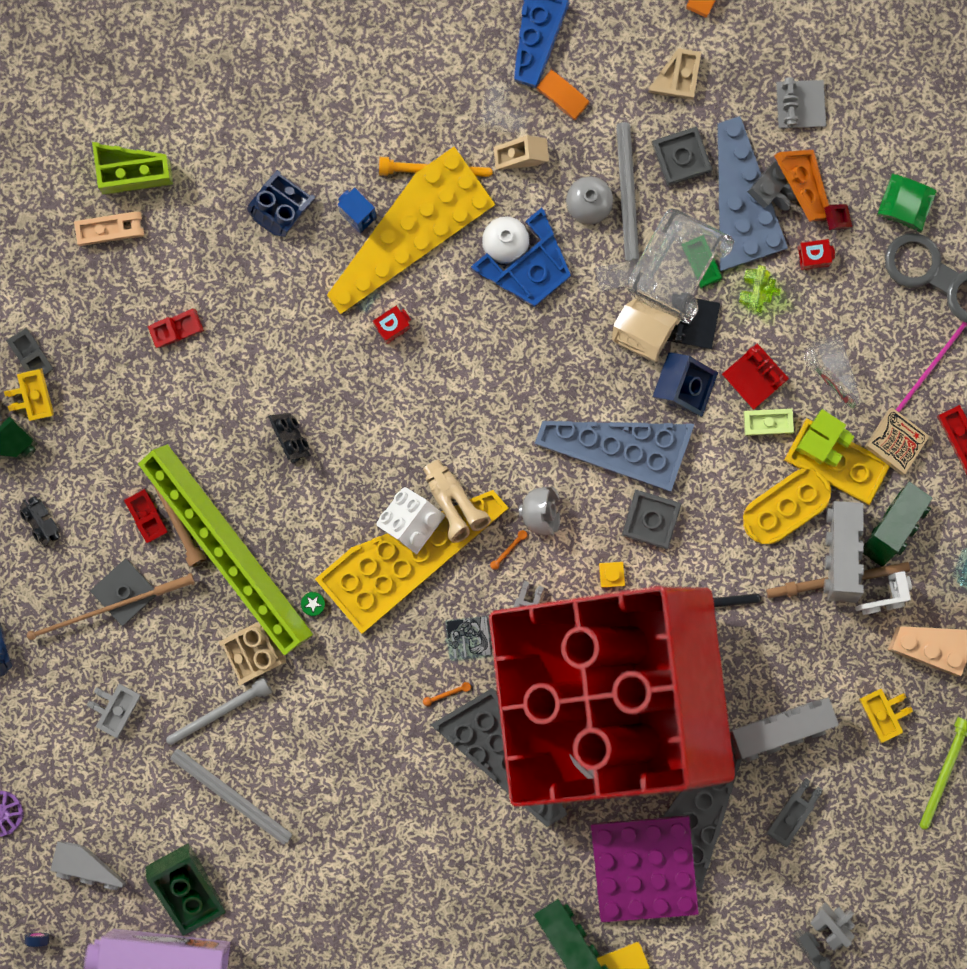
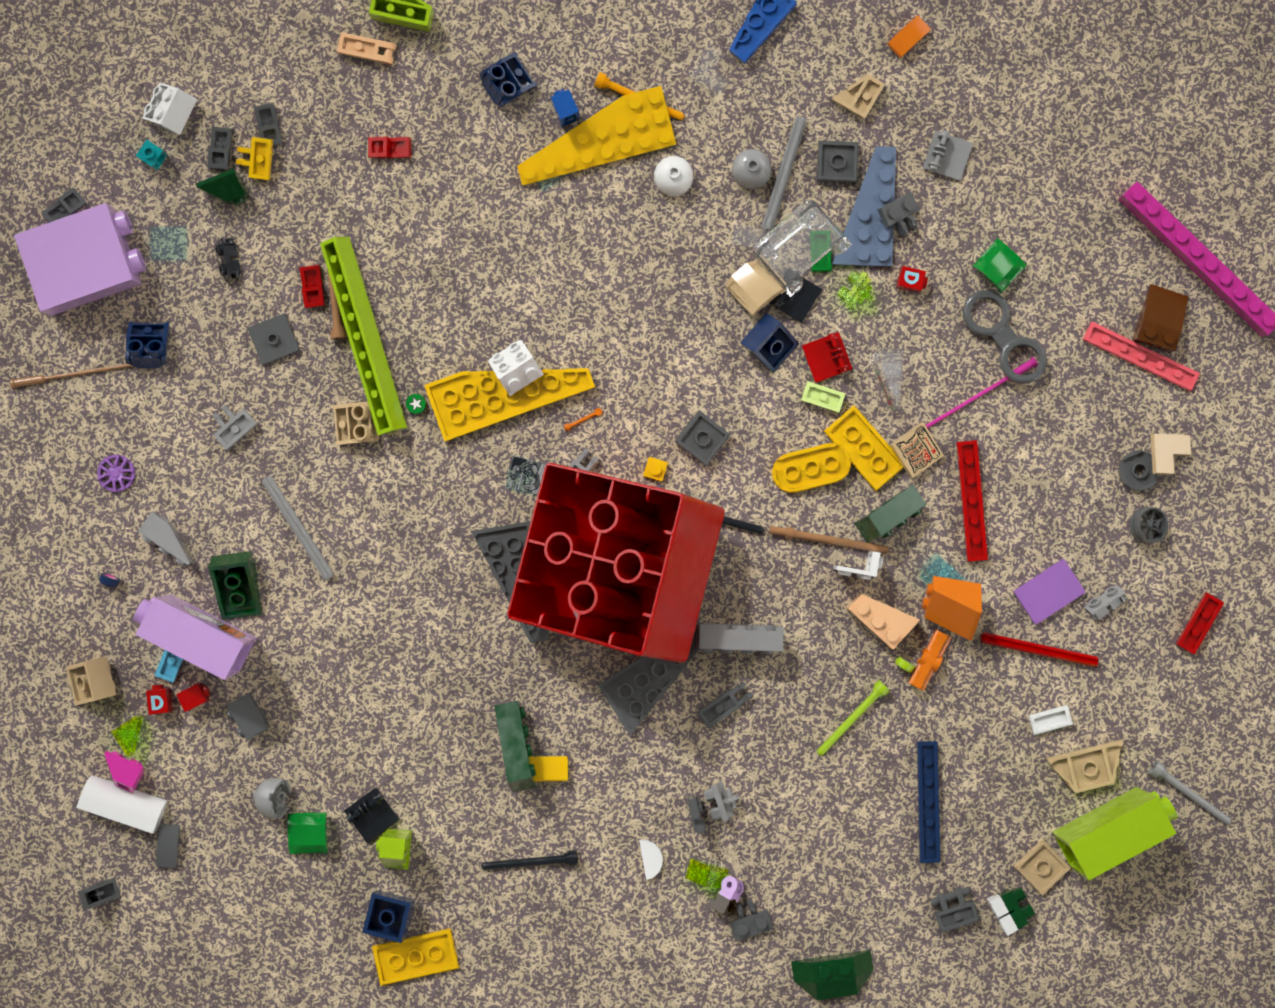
camera: 15 degrees right, 5 degrees up
(158, 590) = (300, 347): medium nougat piece -> none
(258, 689) = (350, 454): light grey piece -> none
(291, 441) = (446, 266): black hinge -> none
(392, 324) = (559, 208): red brick -> none
(427, 701) = (476, 512): orange hinge -> none
(444, 490) = (552, 353): tan piece -> none
(521, 153) = (712, 111): tan slope -> none
(534, 273) = (687, 210): blue wing -> none
(540, 511) = (618, 398): light grey cylinder -> none
(563, 94) = (763, 77): orange slope -> none
(630, 449) = (707, 377): sand blue wing -> none
(644, 868) = (593, 703): magenta plate -> none
(805, 181) = (926, 219): orange wing -> none
(821, 438) = (854, 433): lime hips -> none
(838, 216) = (941, 256): dark red tile -> none
(844, 552) = (841, 520): light grey wedge -> none
(881, 715) = (820, 656): yellow hinge -> none

